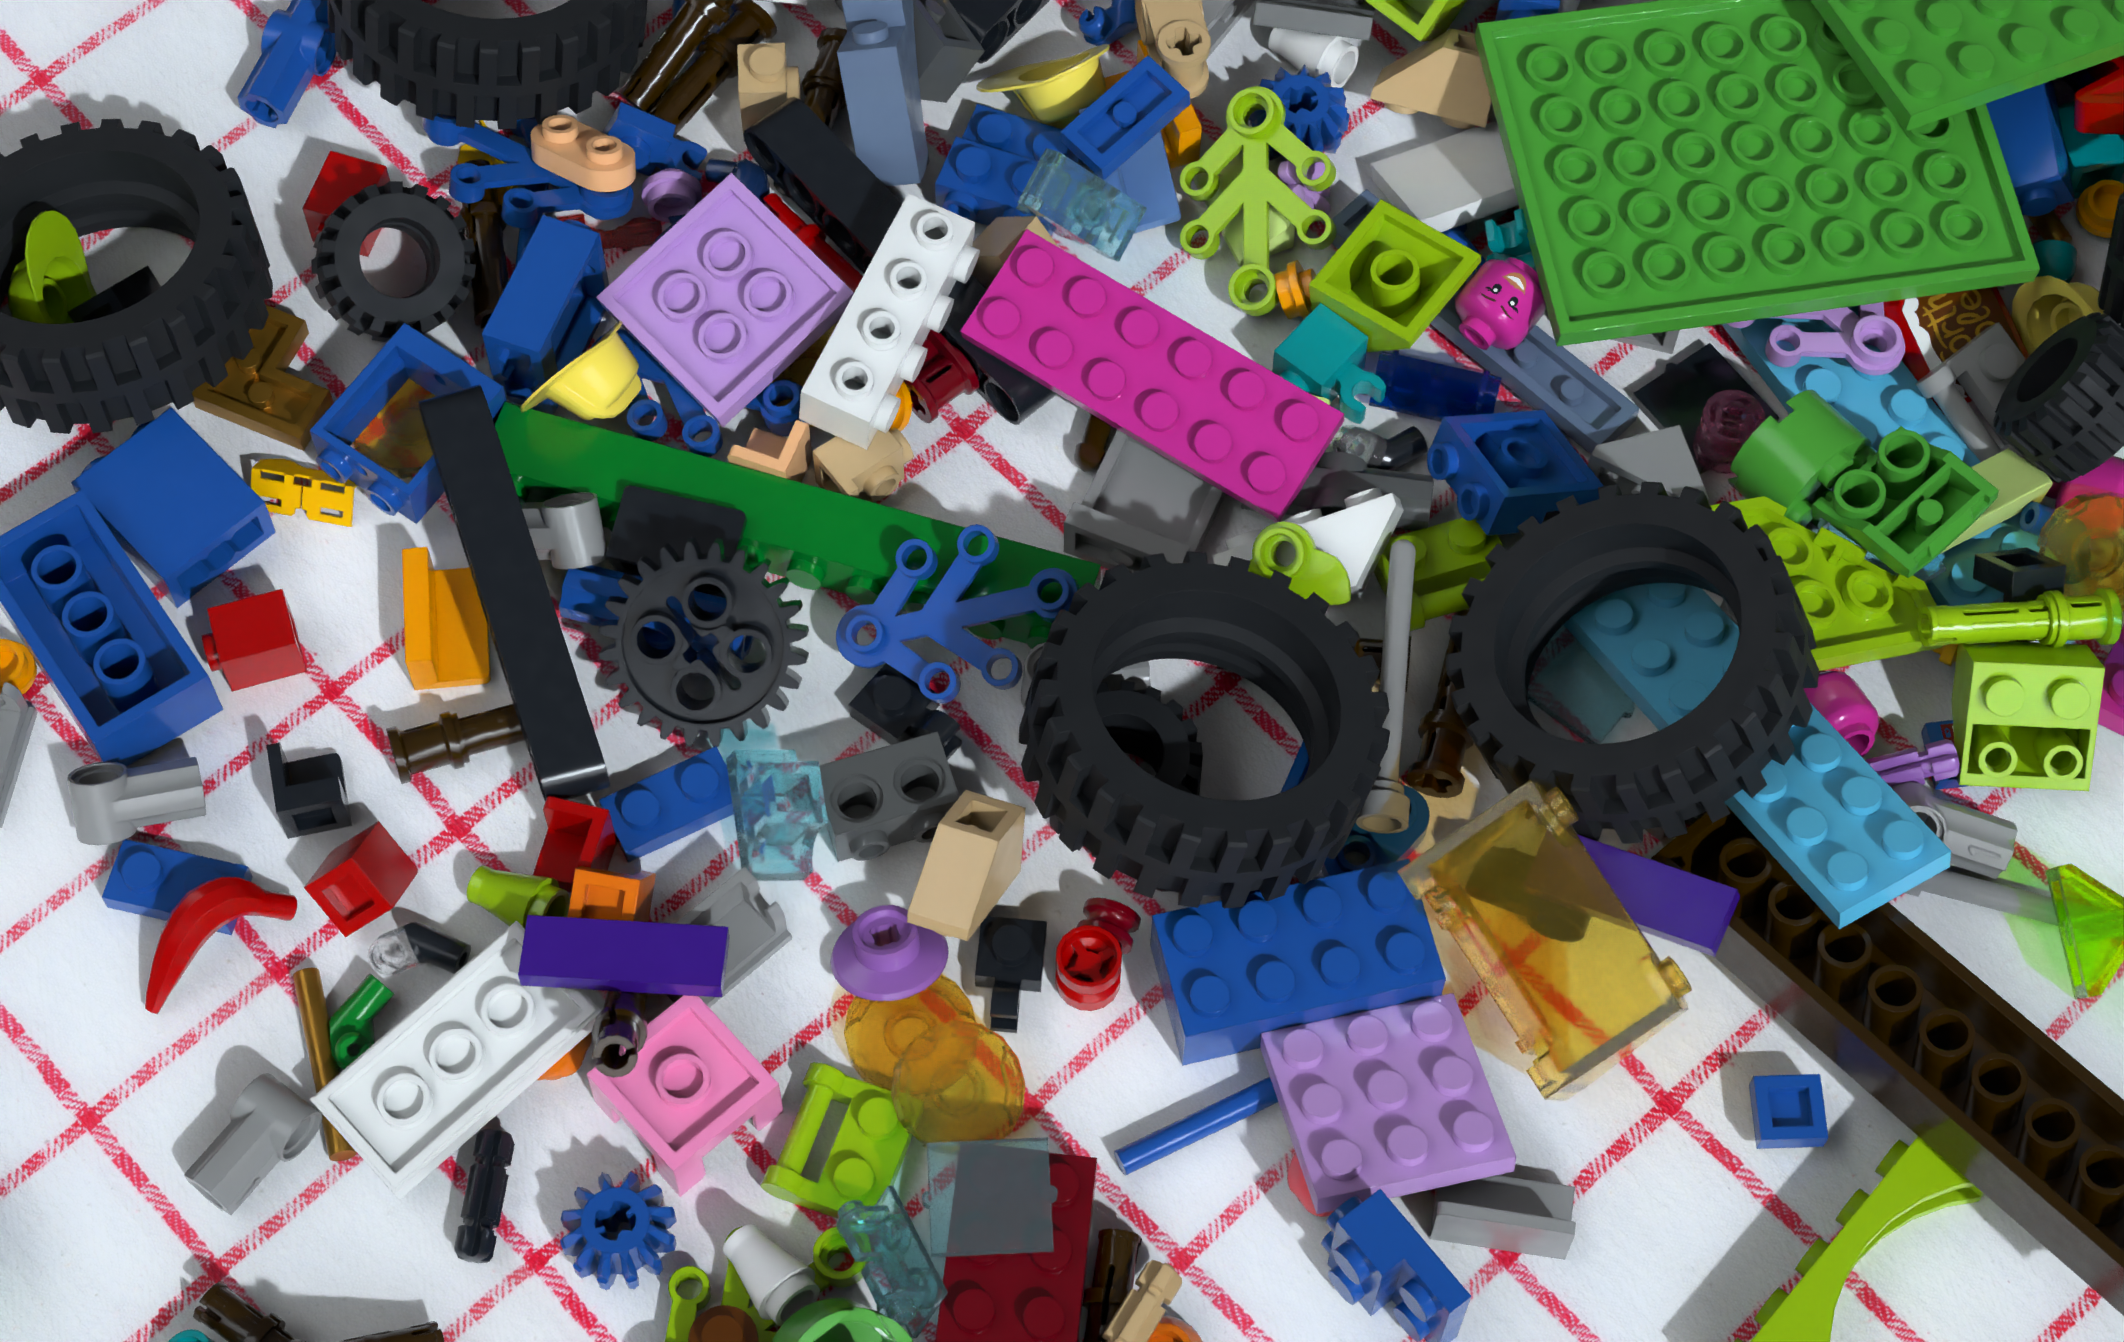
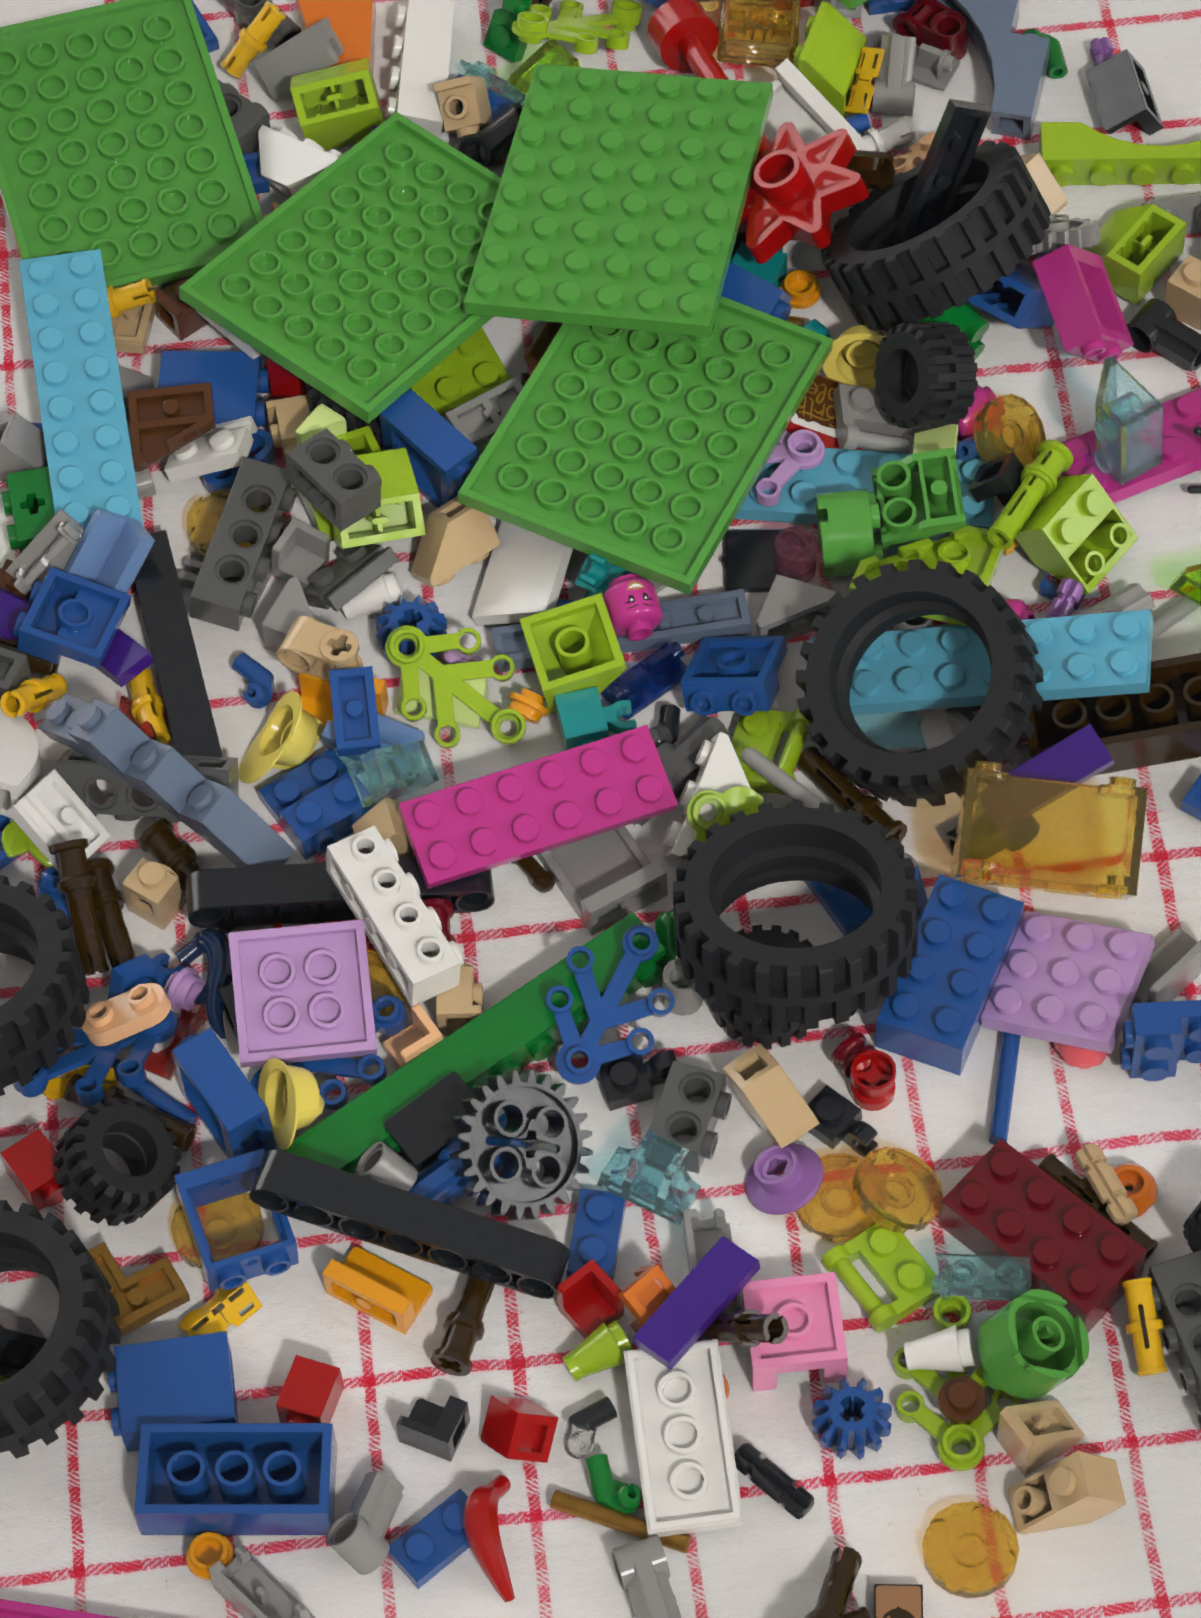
camera: 50 degrees left, 5 degrees down
(989, 1197) = (989, 1201): clear light blue piece -> none

